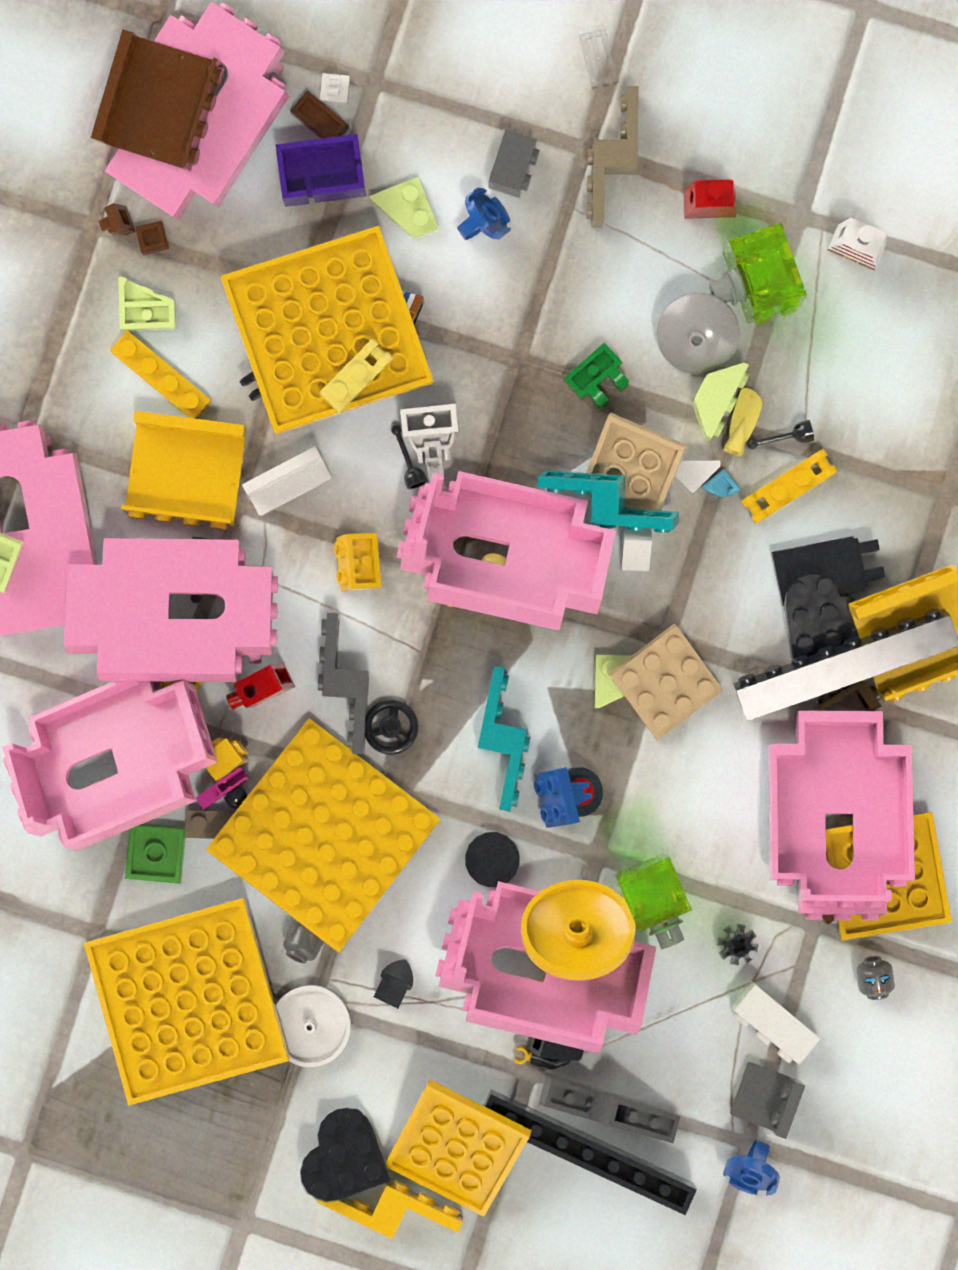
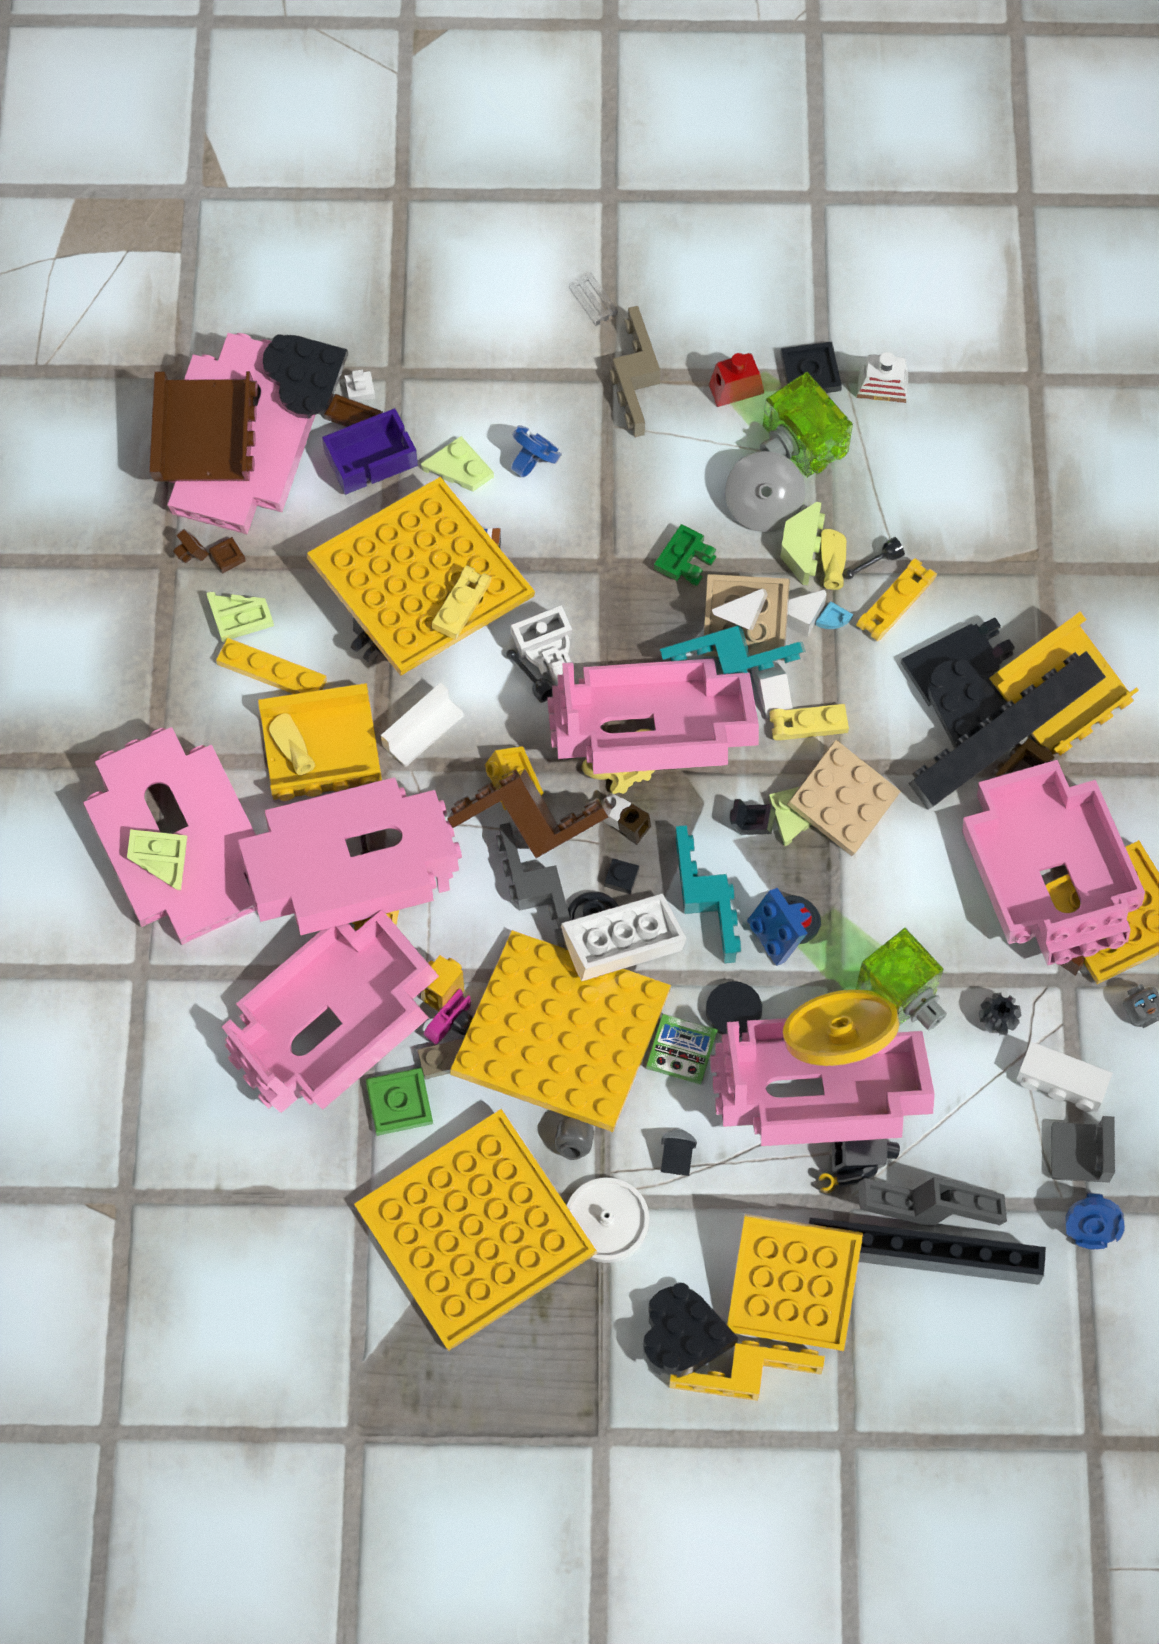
camera: 20 degrees left, 20 degrees down
(156, 461) = (291, 743): none -> light yellow piece
(269, 683) = (462, 905): red torso -> none
(276, 71) = (304, 371): none -> black plate
(357, 615) = (529, 812): none -> reddish brown bracket
(409, 760) = (623, 937): none -> white slope
(430, 693) = (621, 876): none -> black plate
(431, 883) = (681, 1049): none -> tile
(450, 636) = (628, 818): none -> dark brown leg
(513, 163) = (545, 401): dark grey brick -> none
(571, 675) = (752, 818): none -> black bracket
(628, 465) = (743, 610): none -> white slope
(661, 589) = (809, 722): none -> light yellow plate
(792, 203) = (815, 359): none -> black tile

